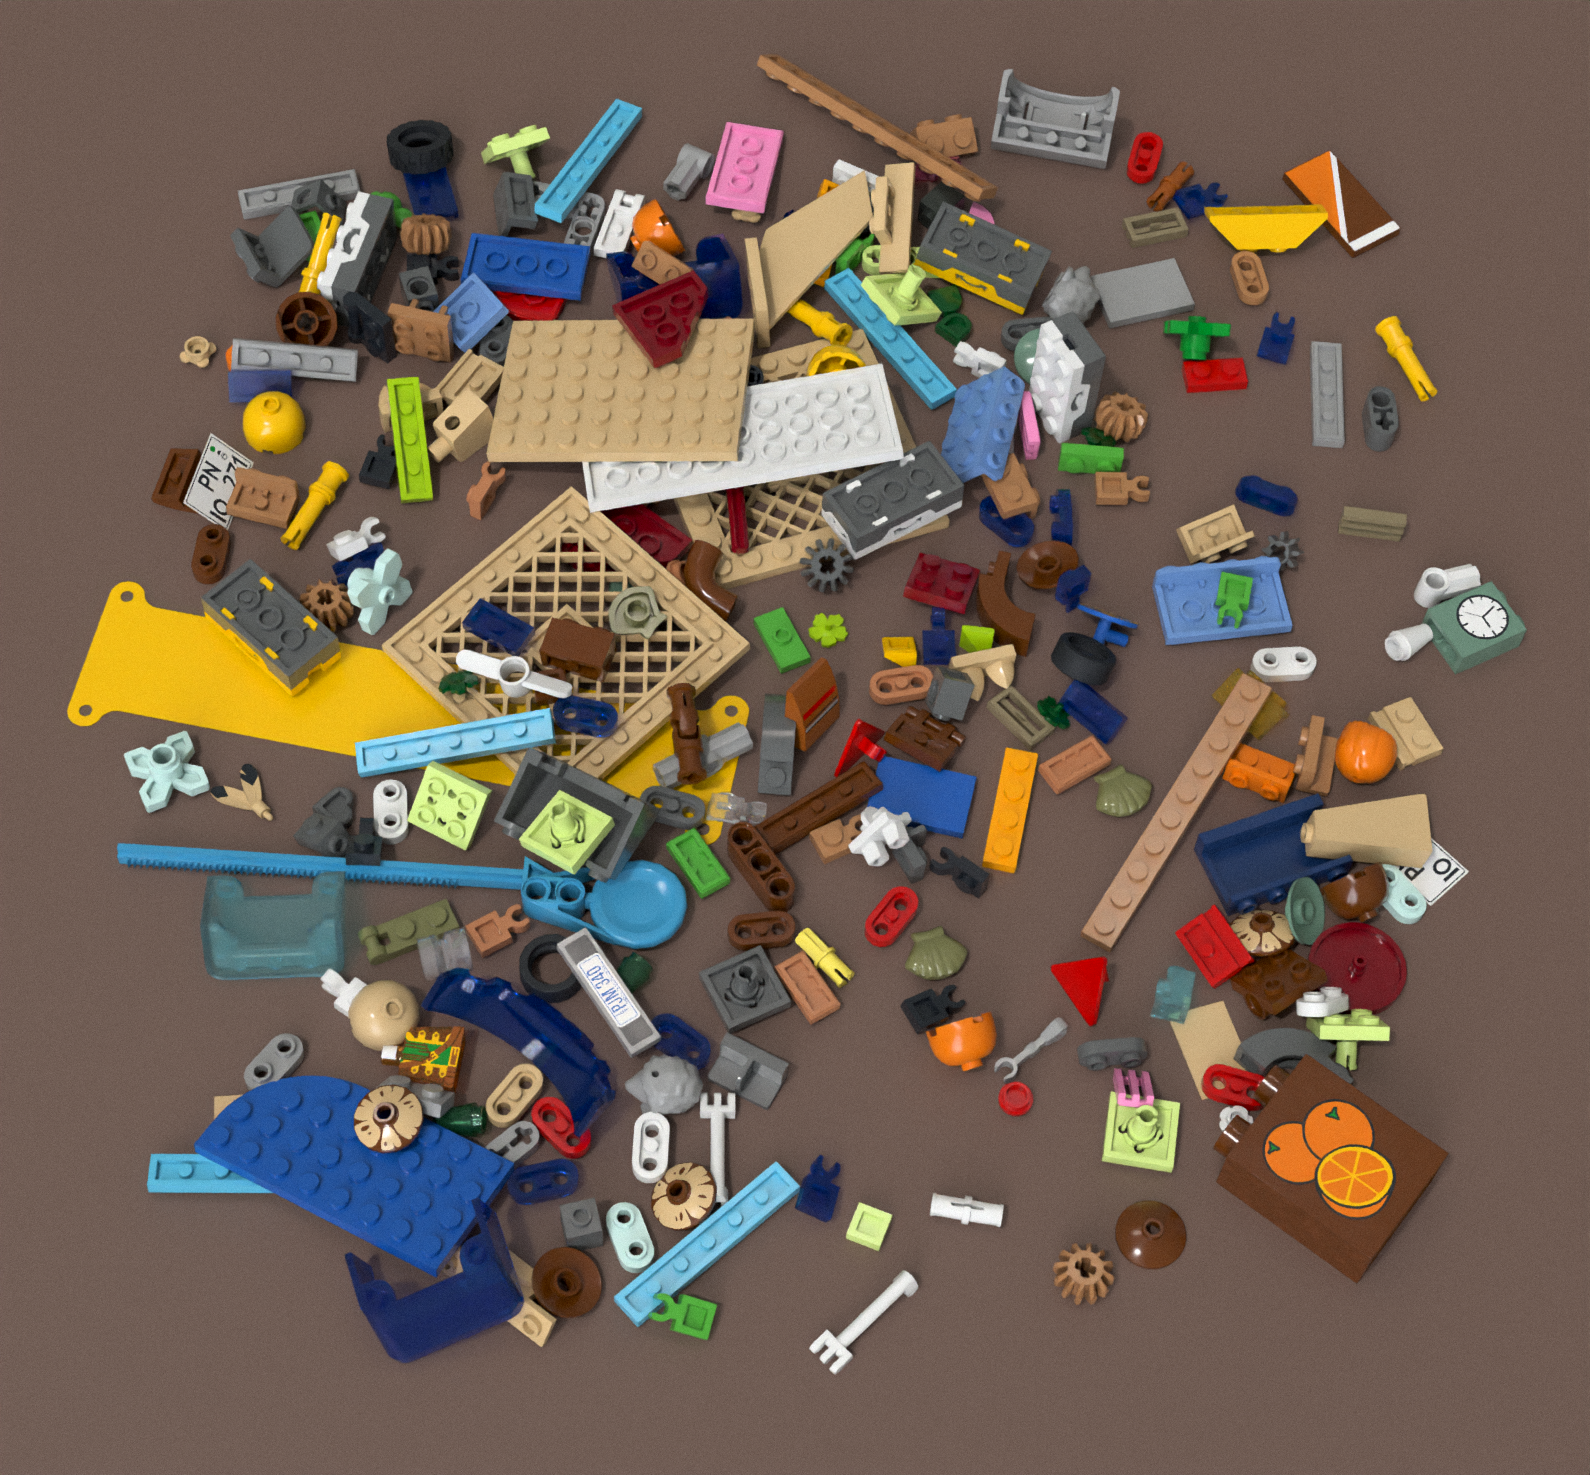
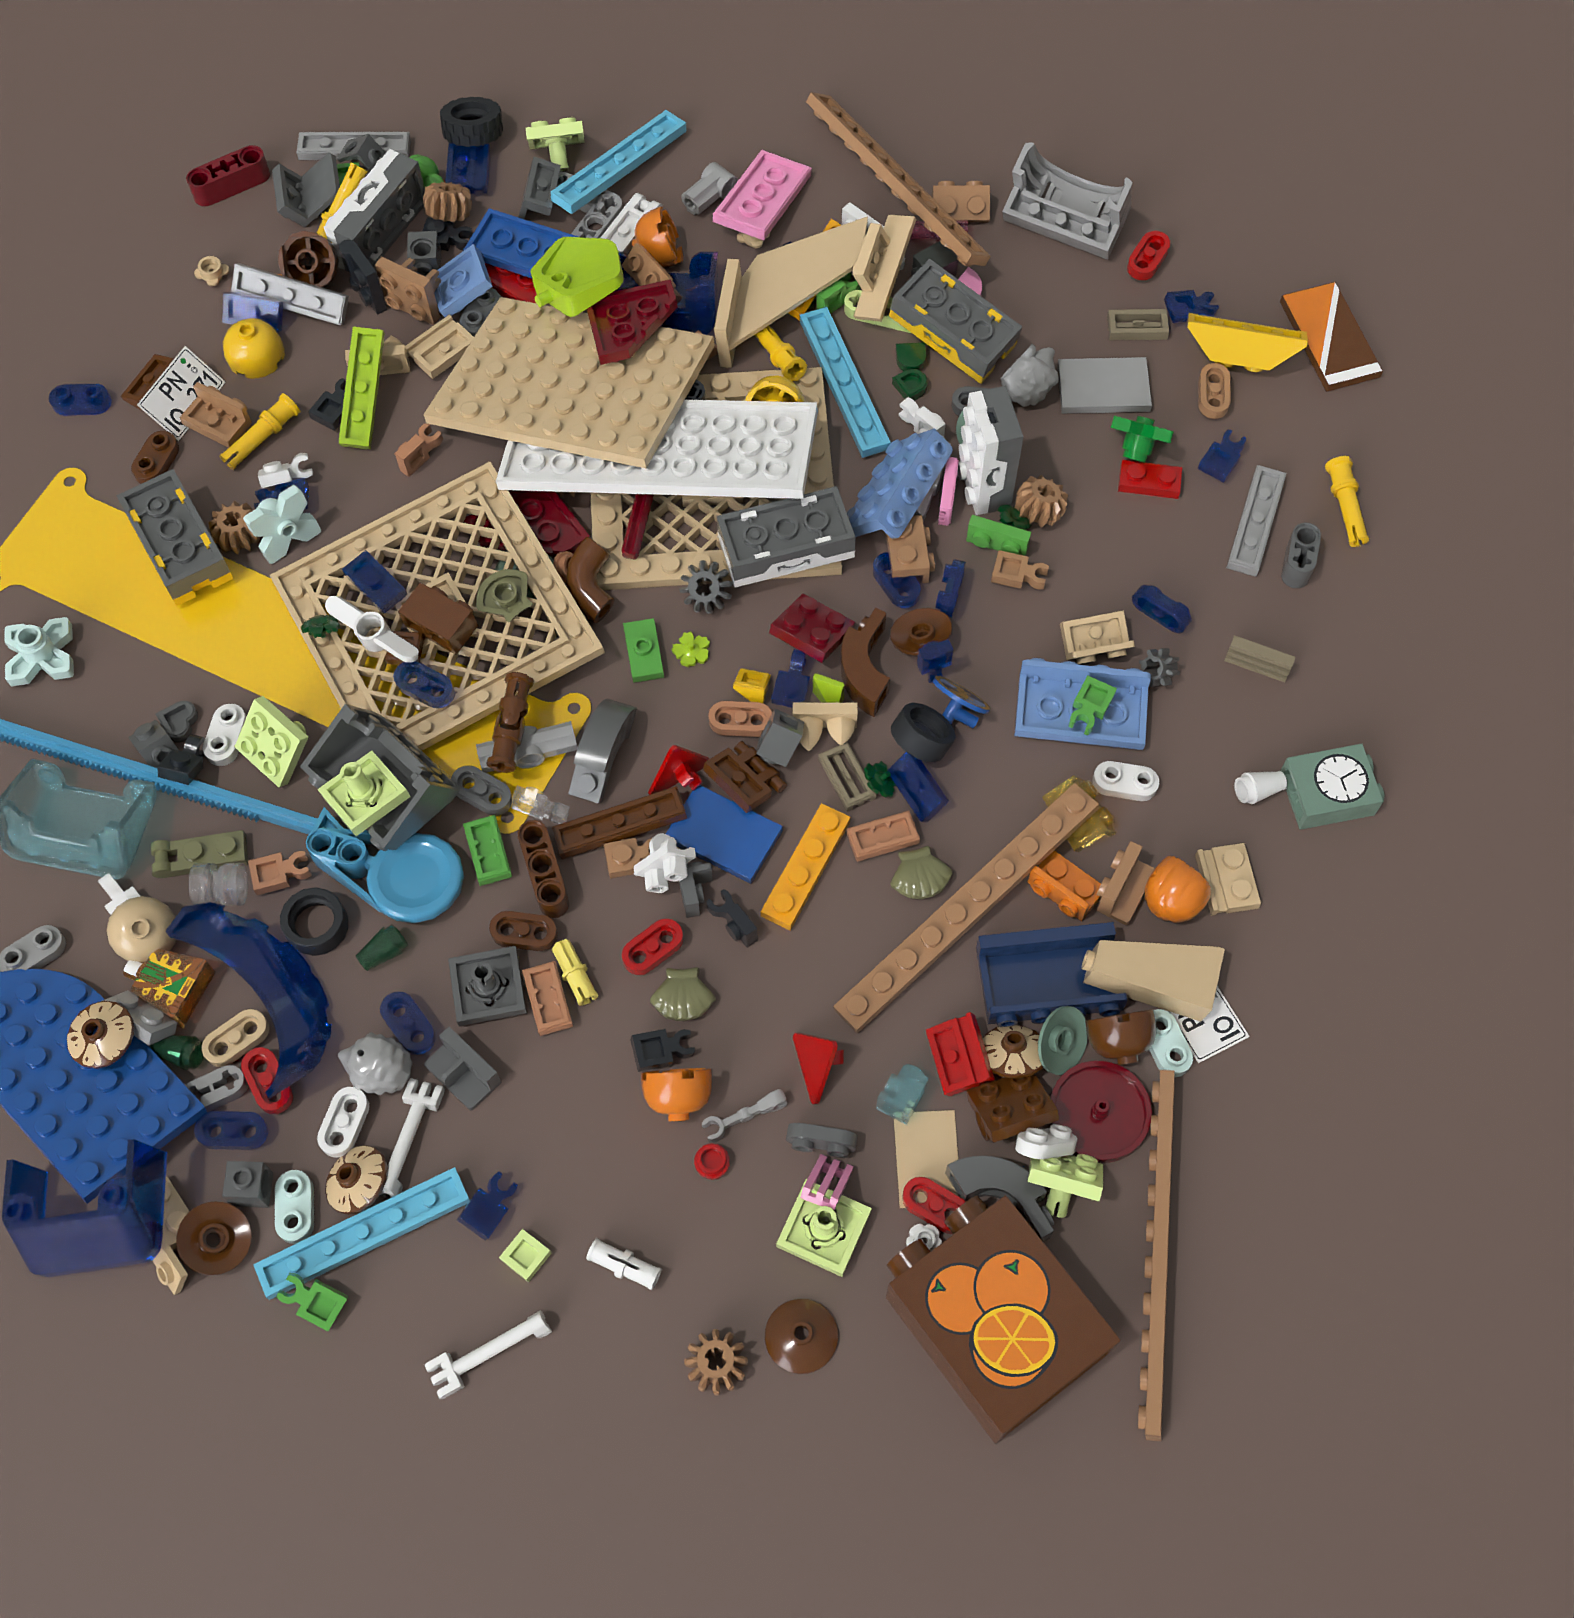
camera: 20 degrees right, 5 degrees up
(107, 511) = (77, 399): none -> clear blue plate
(180, 249) = (228, 175): none -> dark red beam
(247, 799) = (106, 691): tan piece -> none
(455, 742) = (300, 682): medium azure plate -> none
(462, 428) = (411, 385): tan torso -> none
(596, 282) = (577, 274): none -> lime animal
(608, 992) = (351, 959): tile -> none
(813, 703) = (642, 719): dark orange slope -> none
(902, 297) = (870, 341): yellowish green plate -> none
(1169, 185) = (1163, 285): dark orange pin -> none
(1445, 584) = (1317, 735): white piece -> none
(1453, 1088) = (1157, 1265): none -> medium nougat plate

